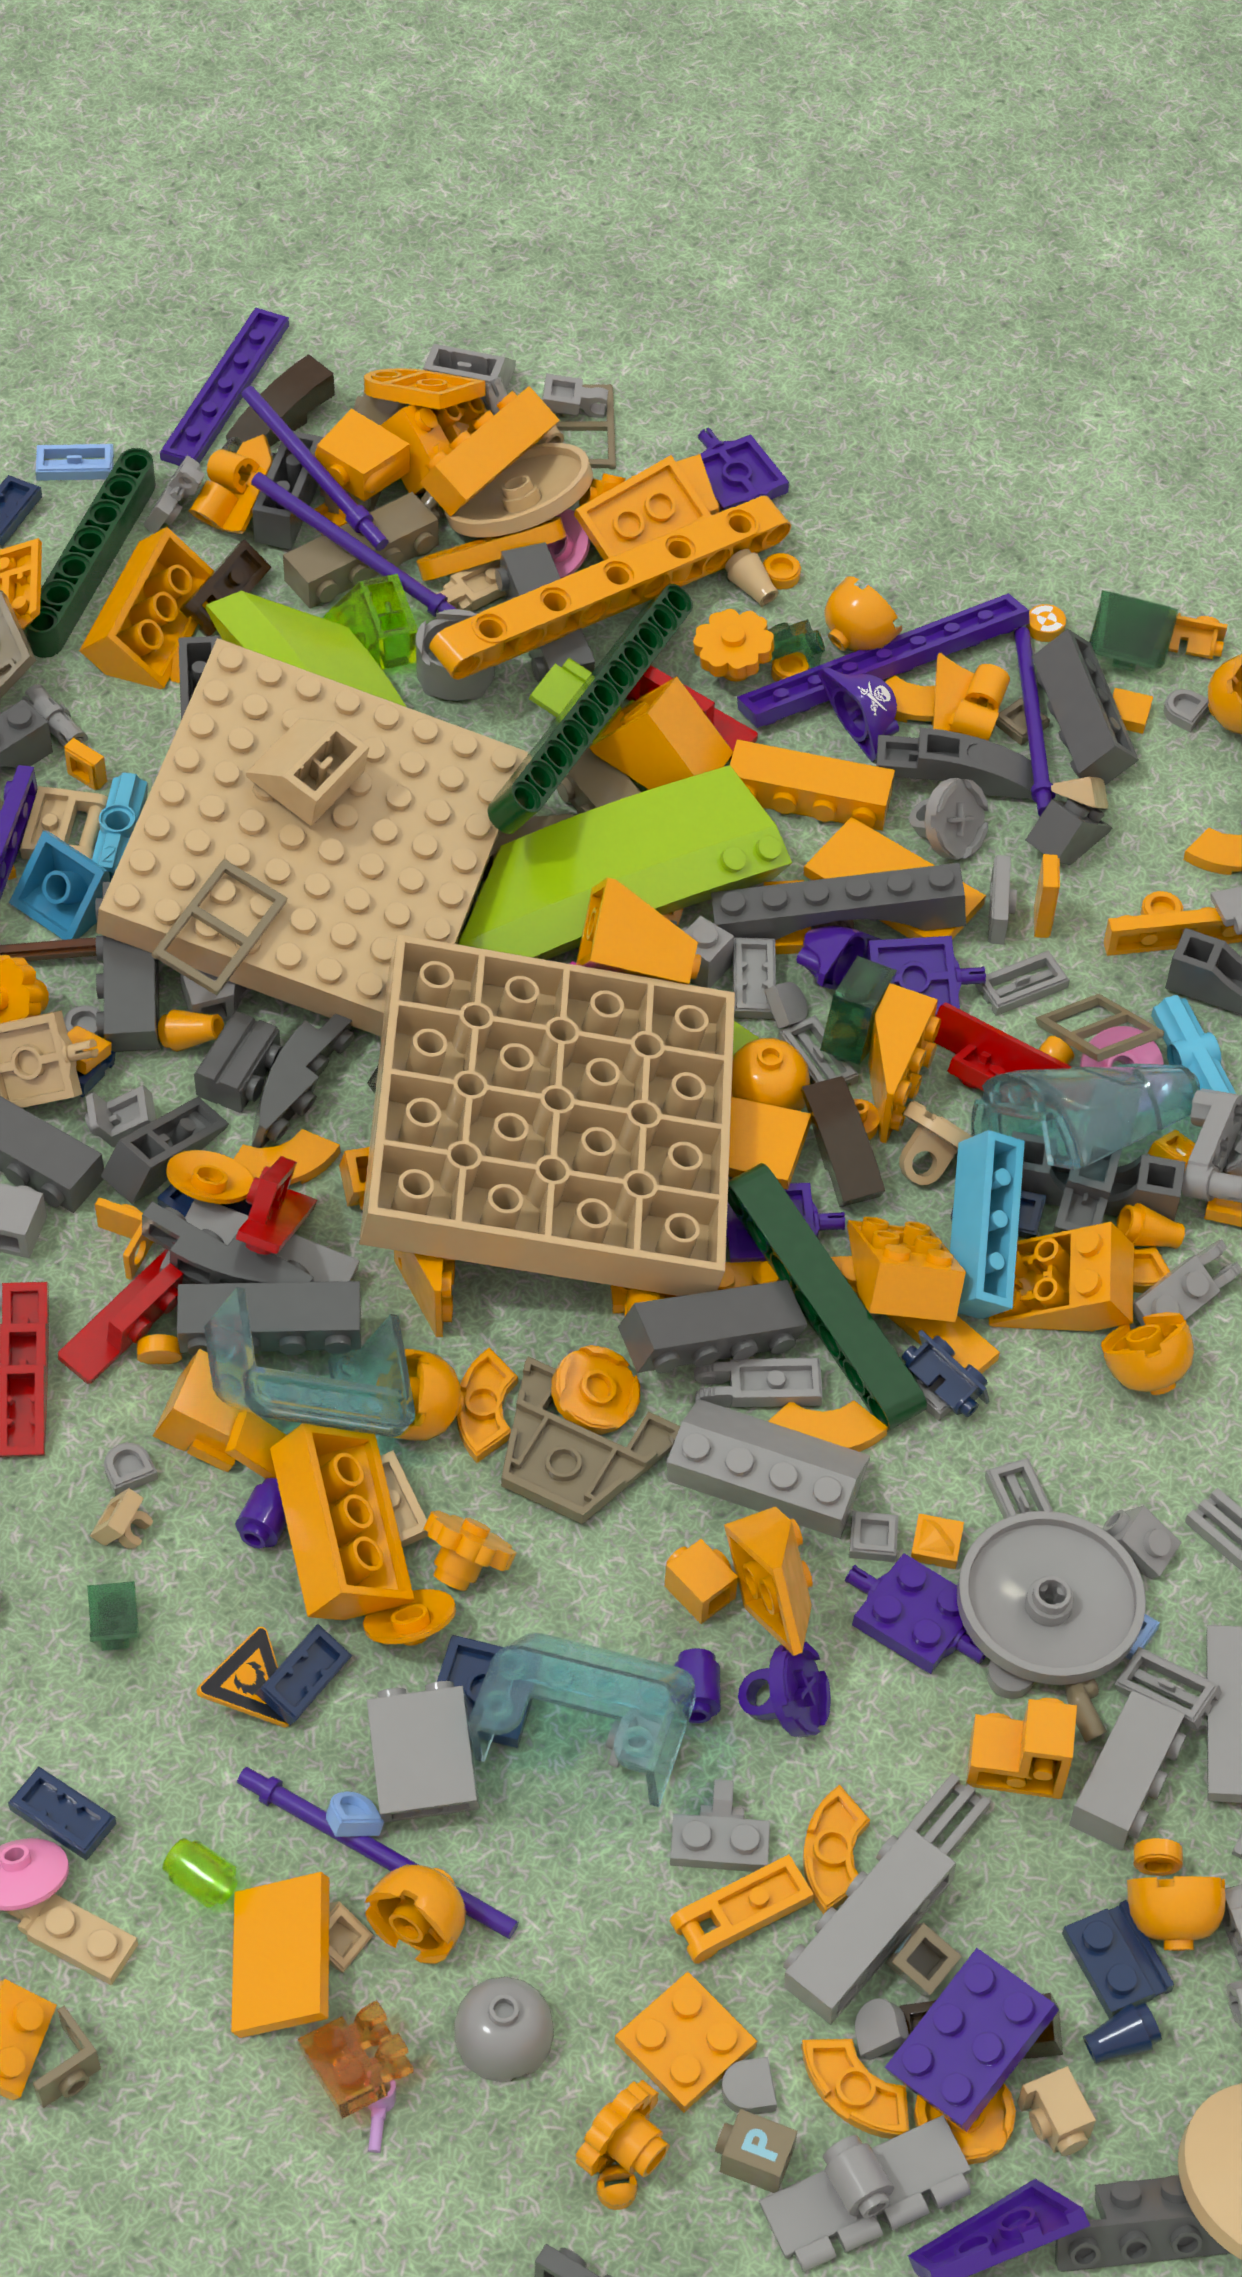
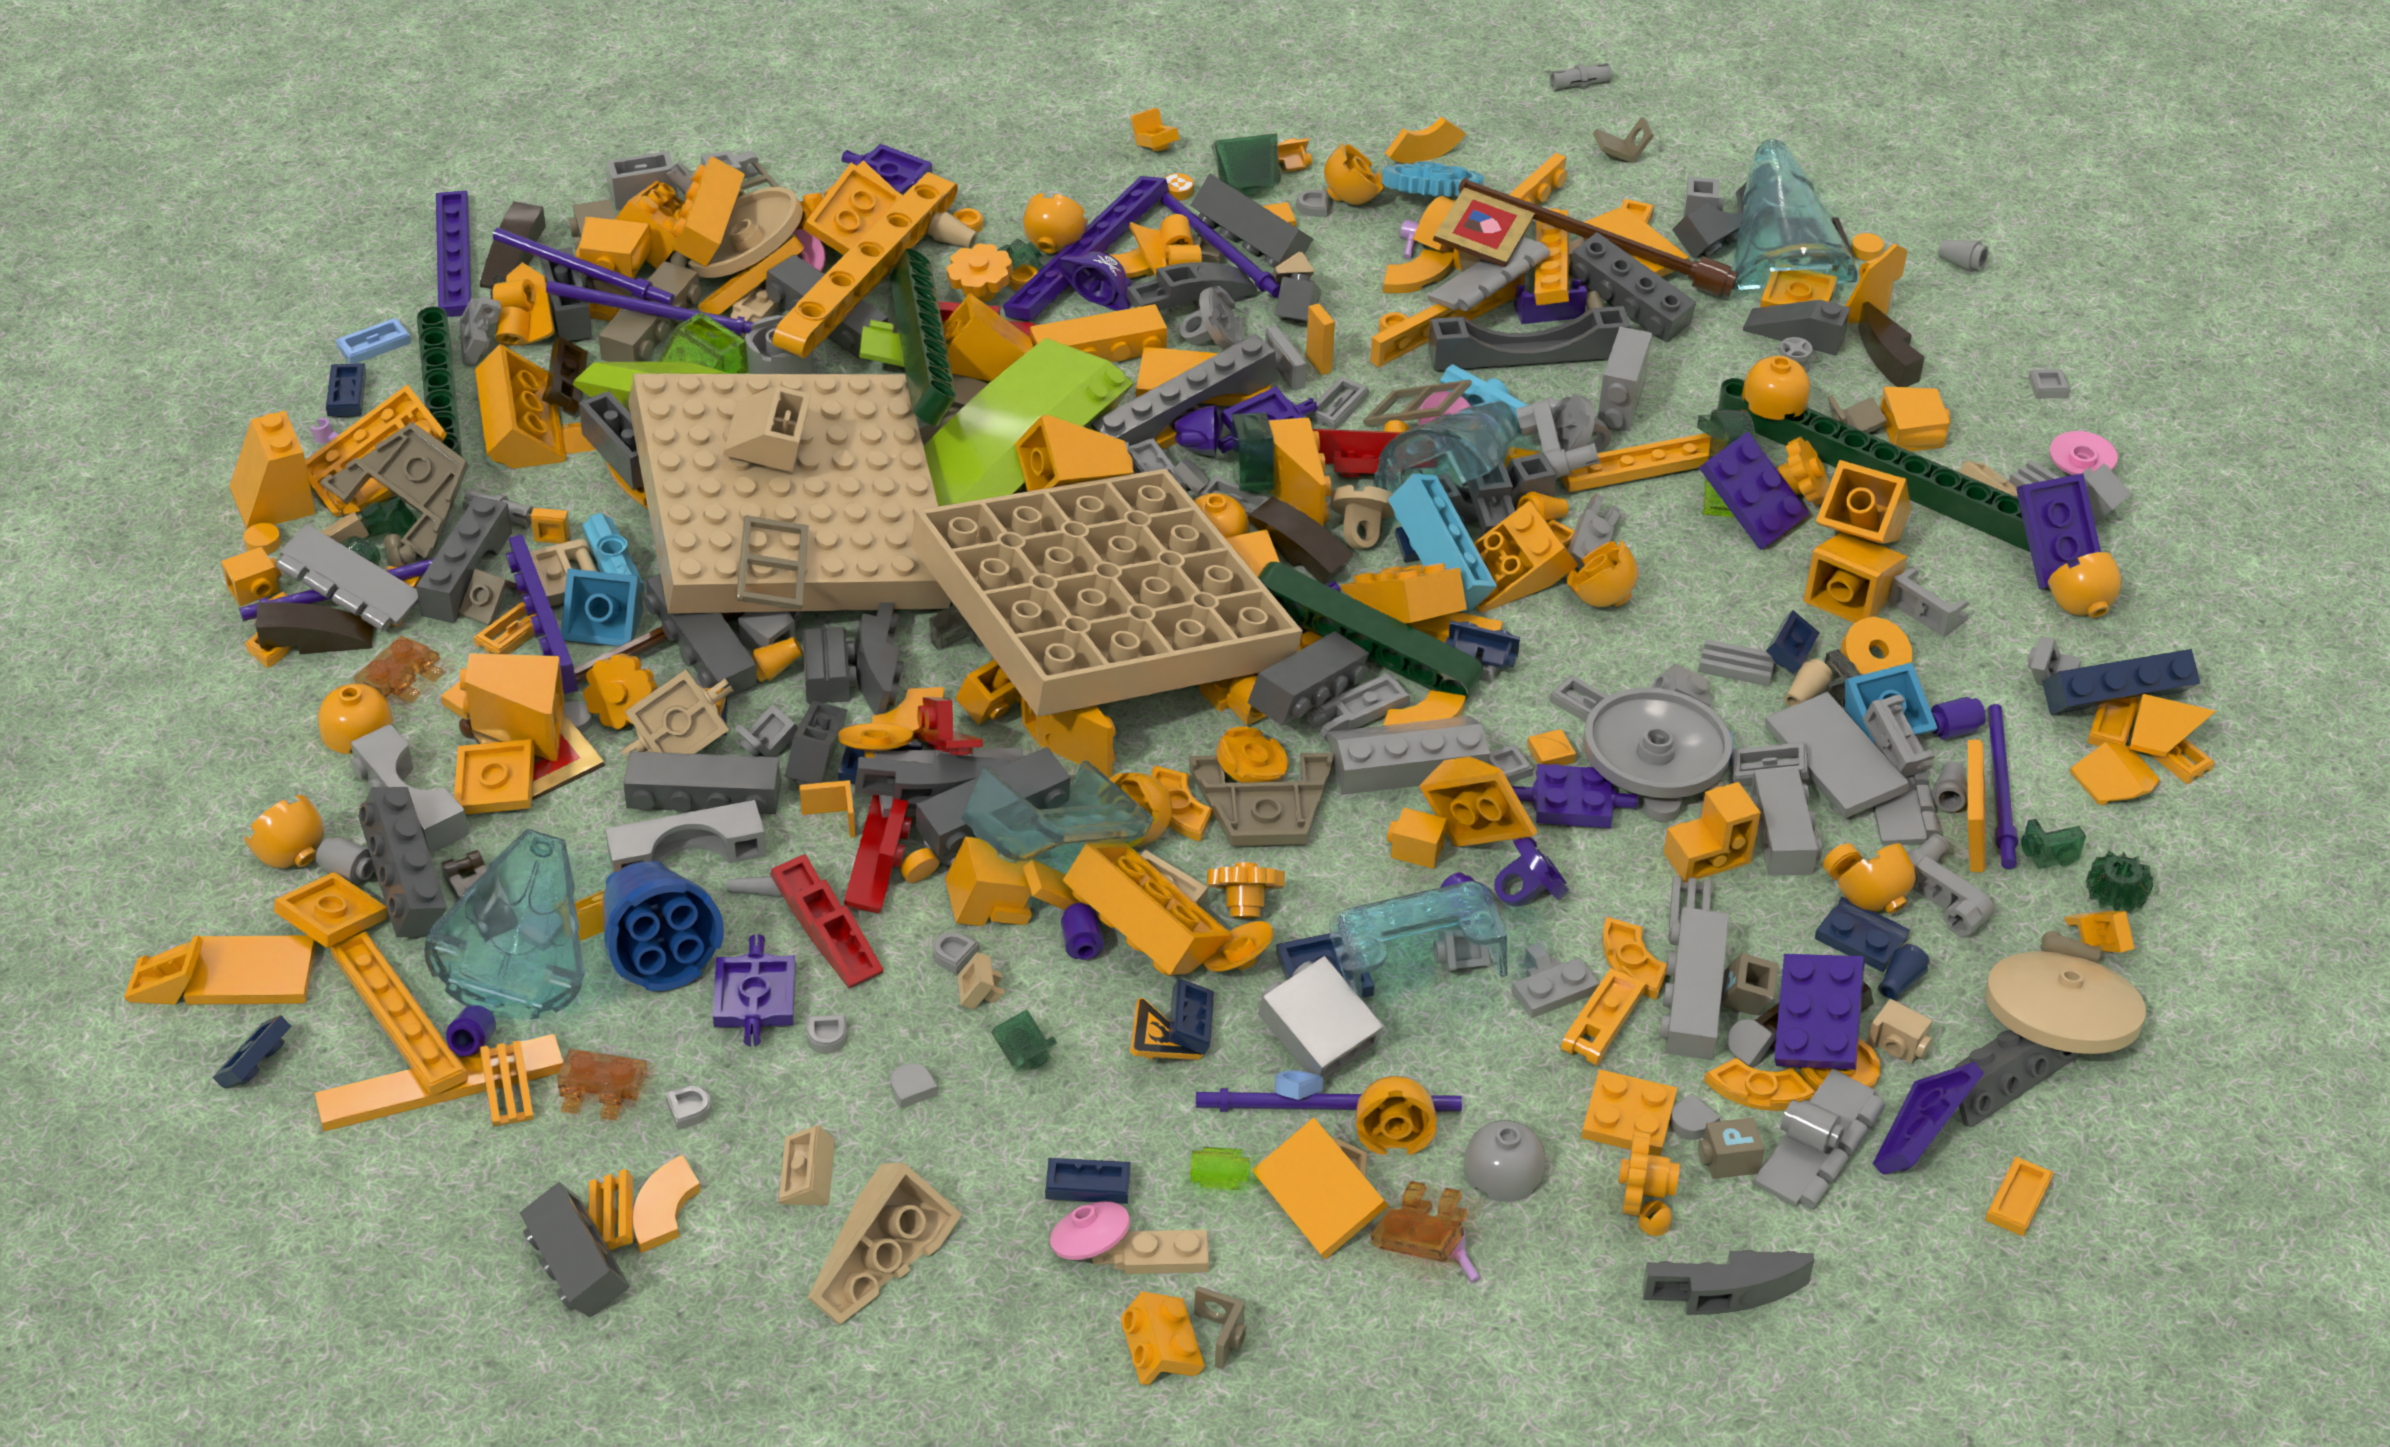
camera: 30 degrees left, 10 degrees down
(422, 387) = (624, 187): light orange tile -> none
(1064, 539) = (1151, 132): none -> light orange bracket

